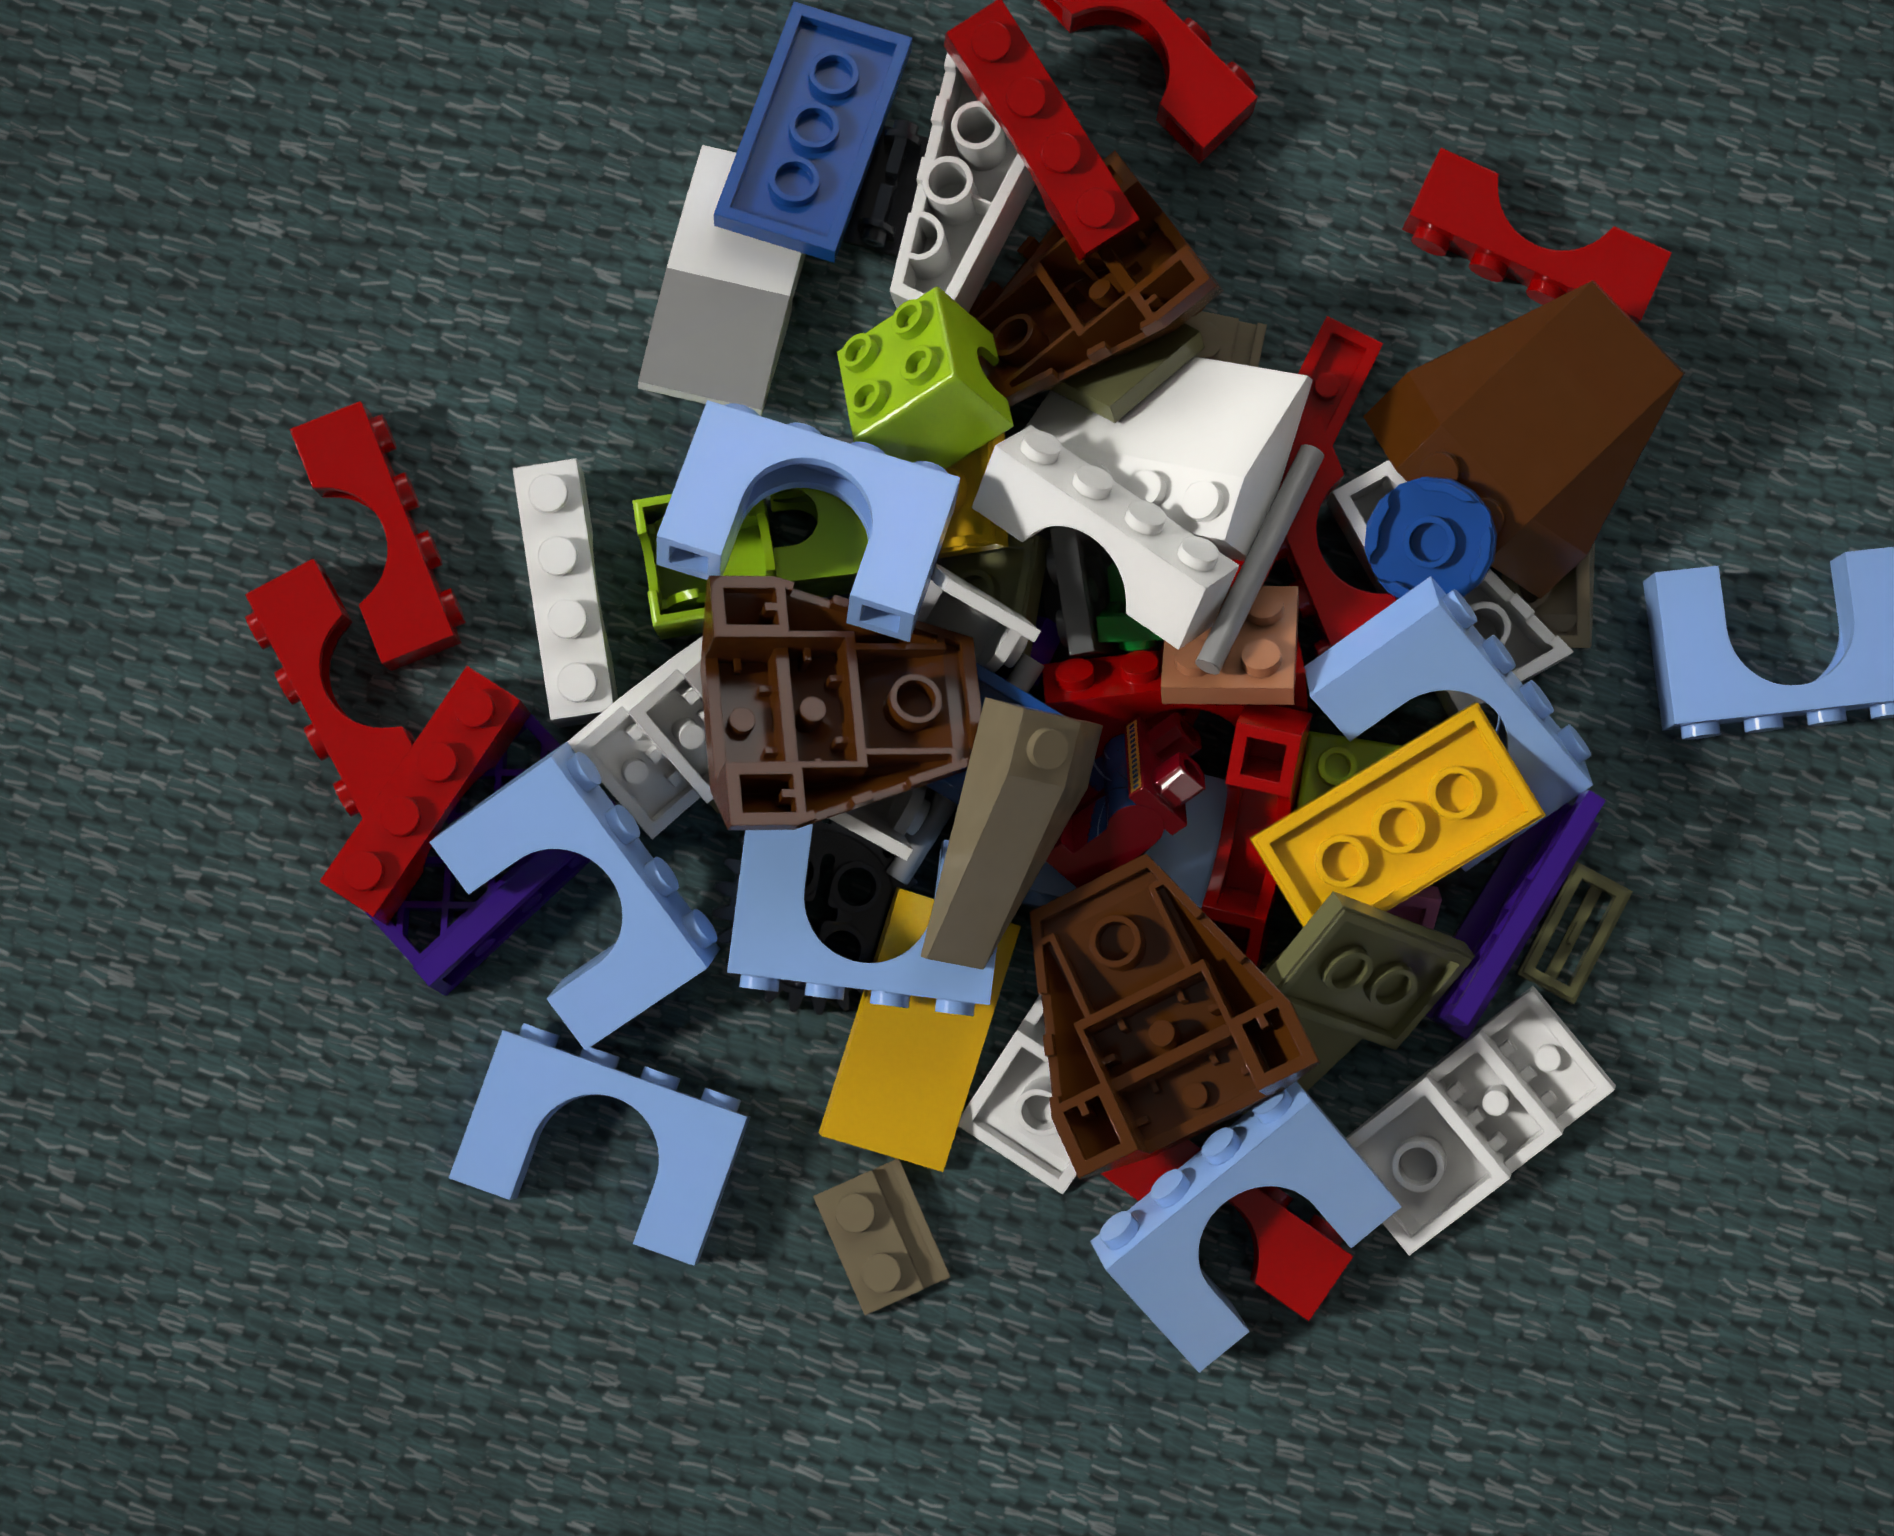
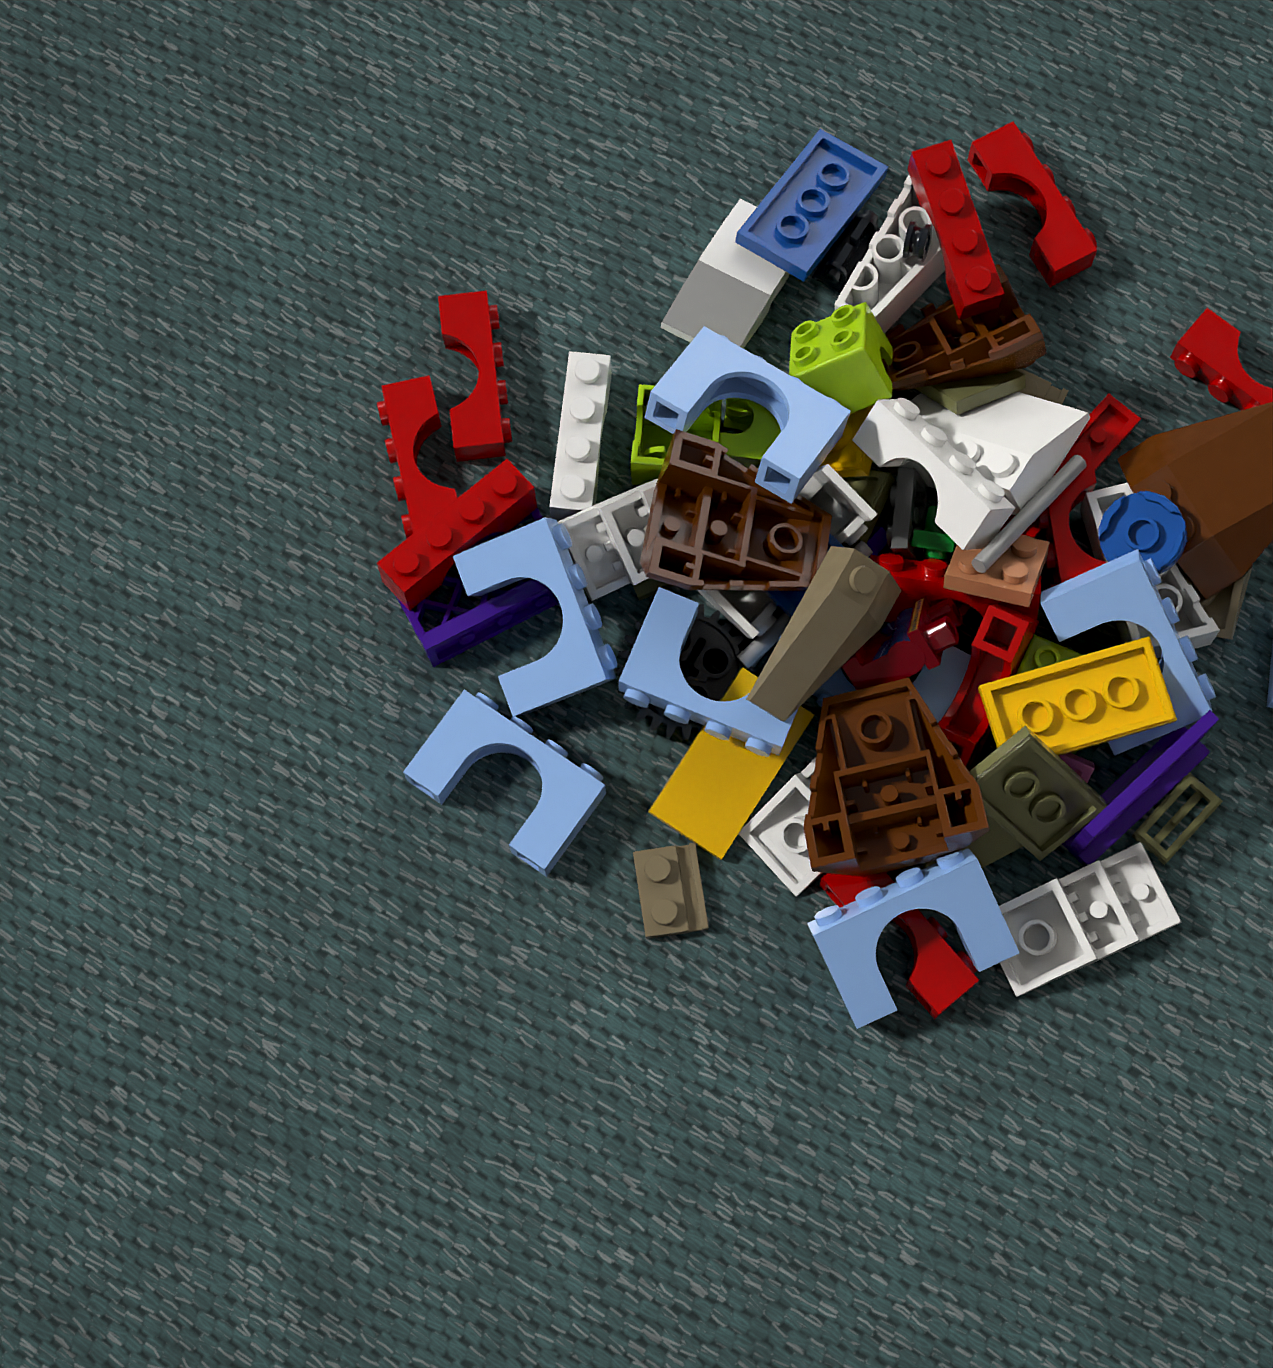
camera: 20 degrees right, 10 degrees down
(989, 164) = (917, 241): none -> black bush

